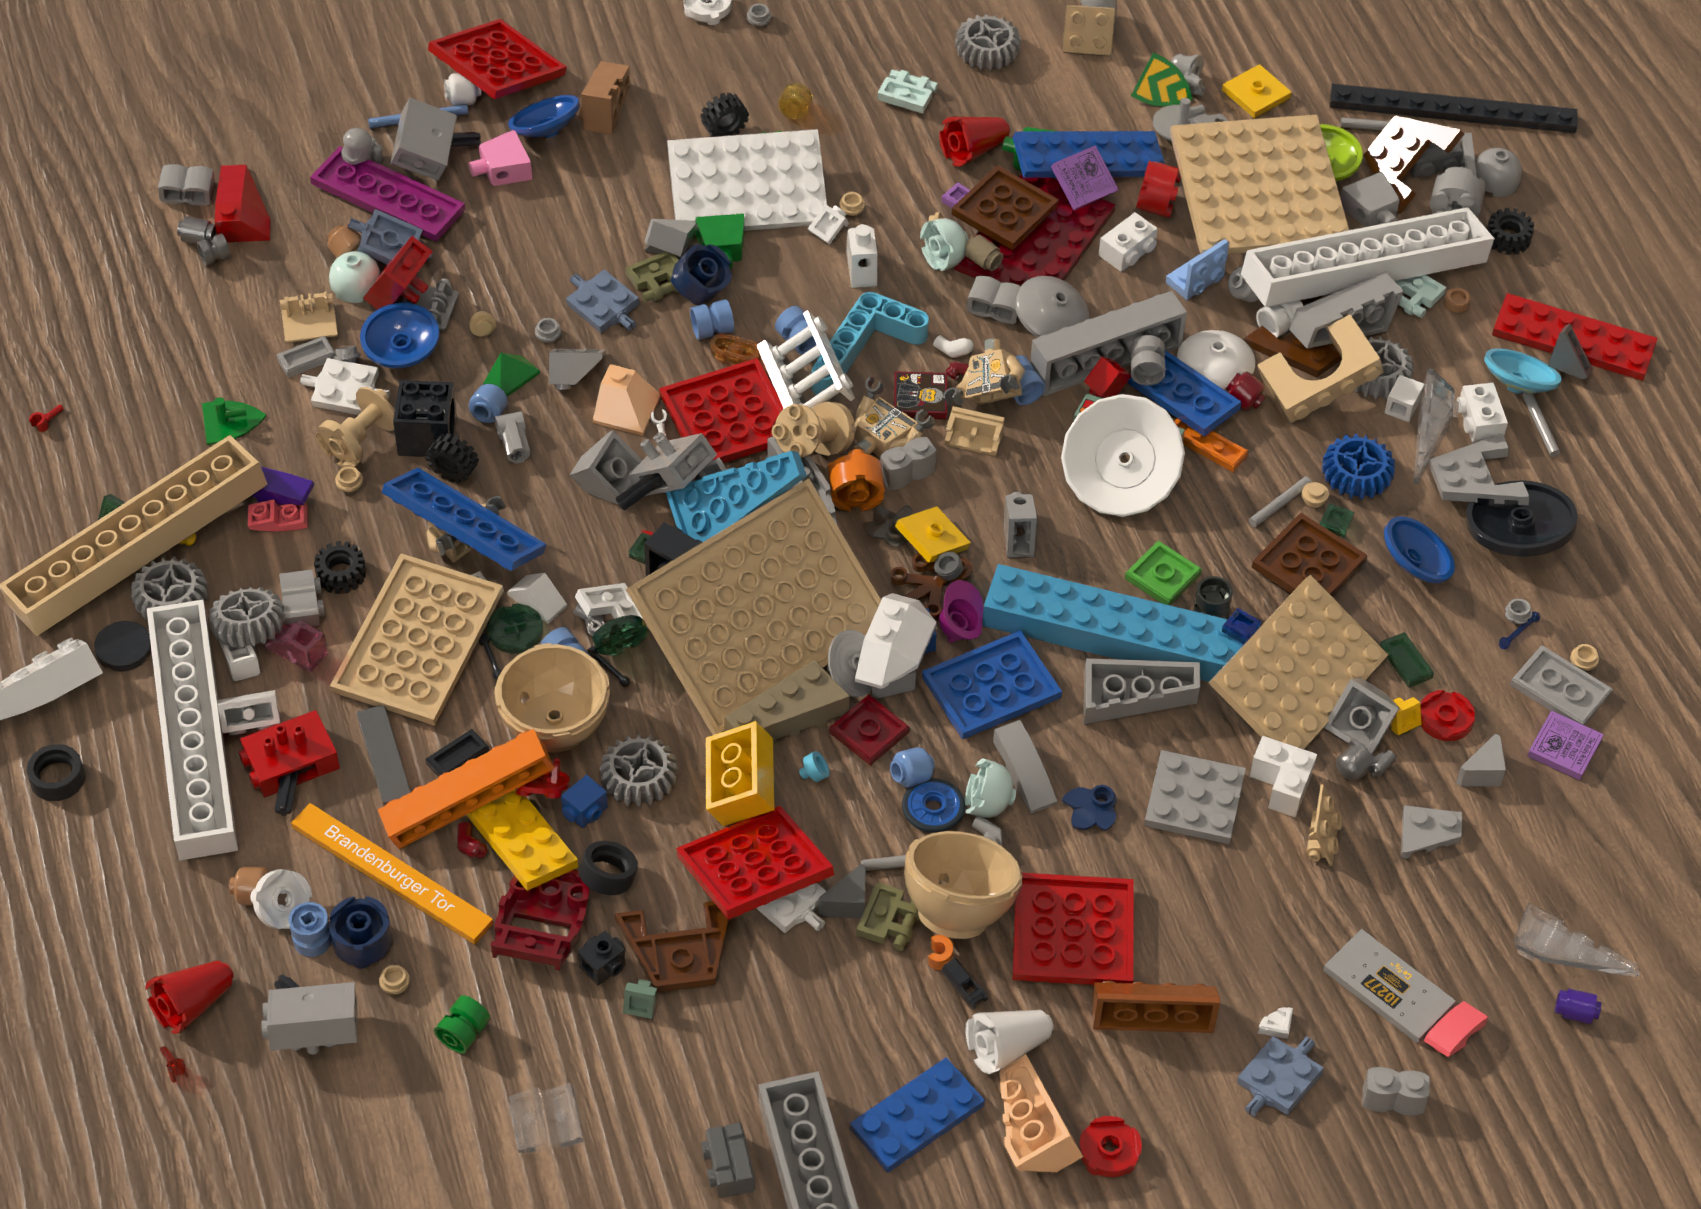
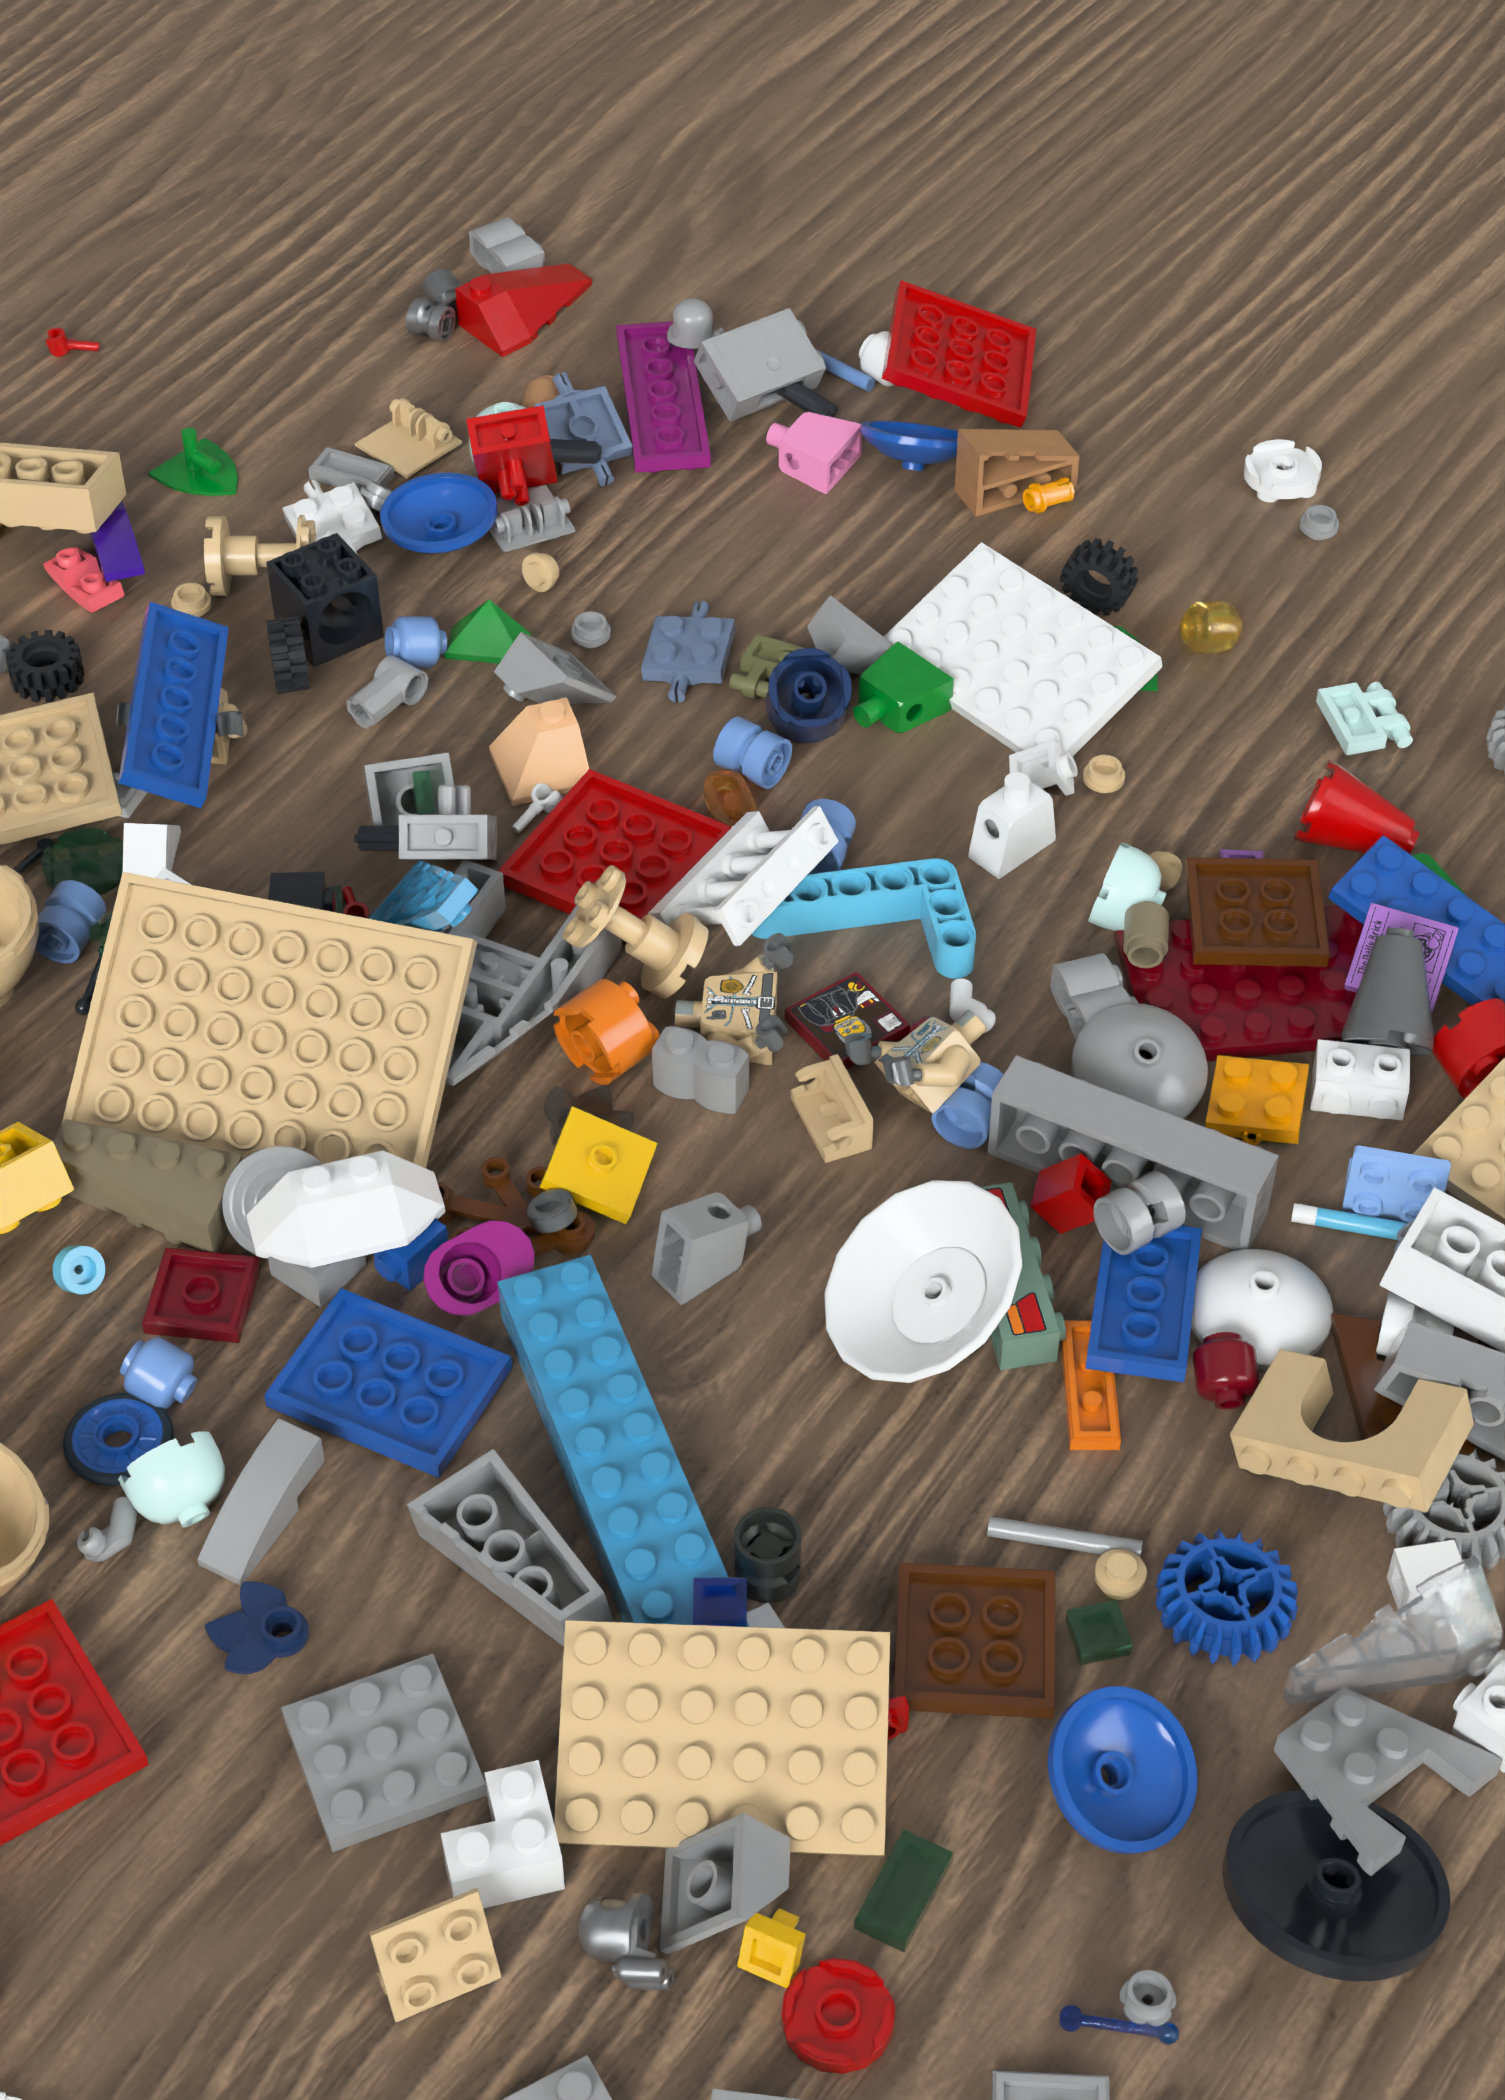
camera: 55 degrees right, 5 degrees down
(627, 458) = (422, 793): none -> clear green tile
(631, 101) = (1040, 497): none -> light orange pin
(1104, 283) = (1258, 1099): none -> light orange plate
(1109, 195) = (1393, 997): none -> dark grey cone
(1163, 573) = (784, 1469): bright green tile -> none
(1206, 294) = (1346, 1221): none -> medium azure bar

